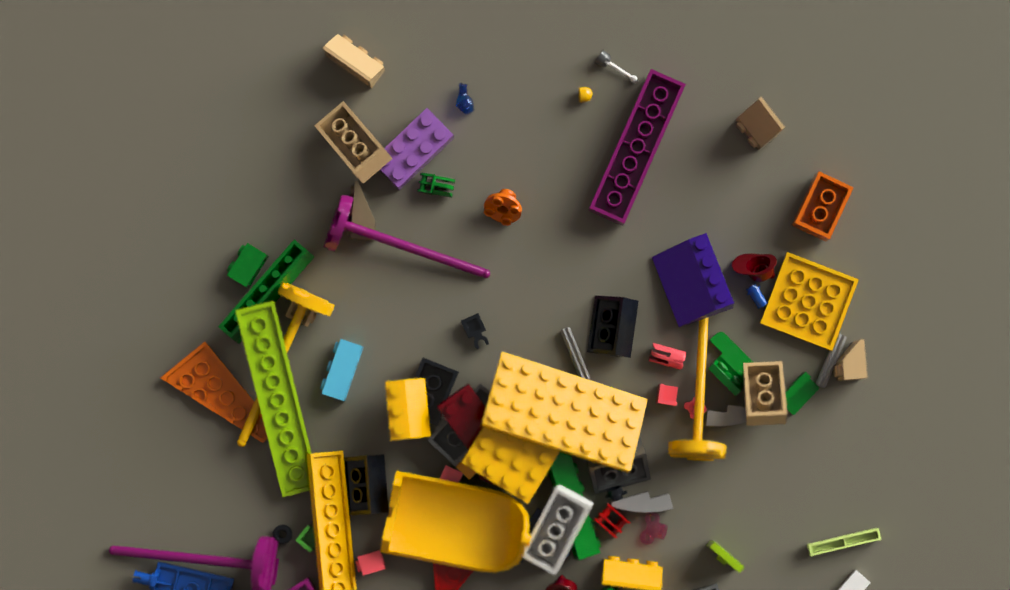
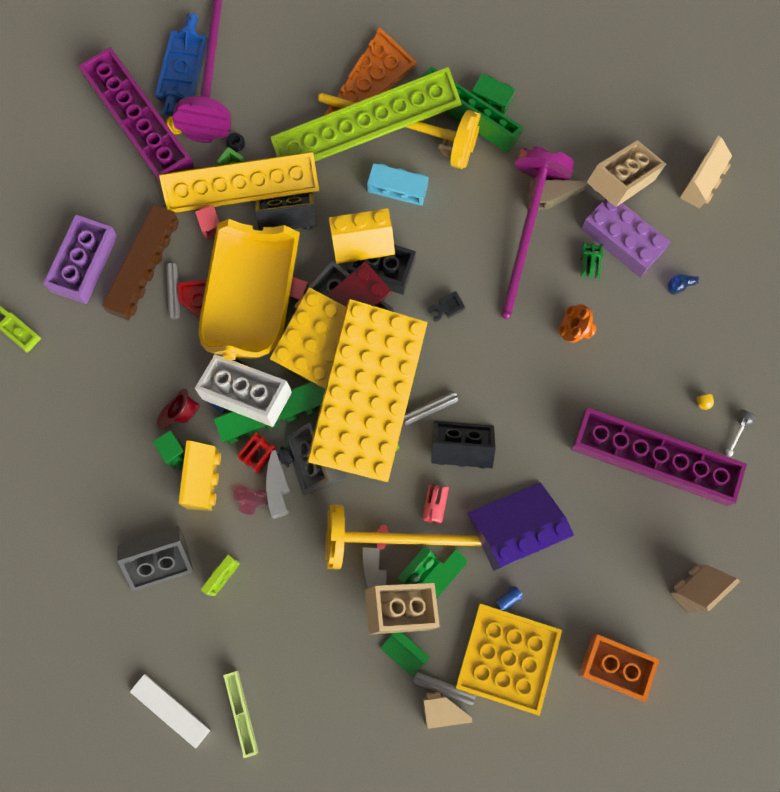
camera: 90 degrees right, 10 degrees down
(667, 395) = (393, 505): coral panel -> none
(758, 266) = (542, 595): dark red piece -> none

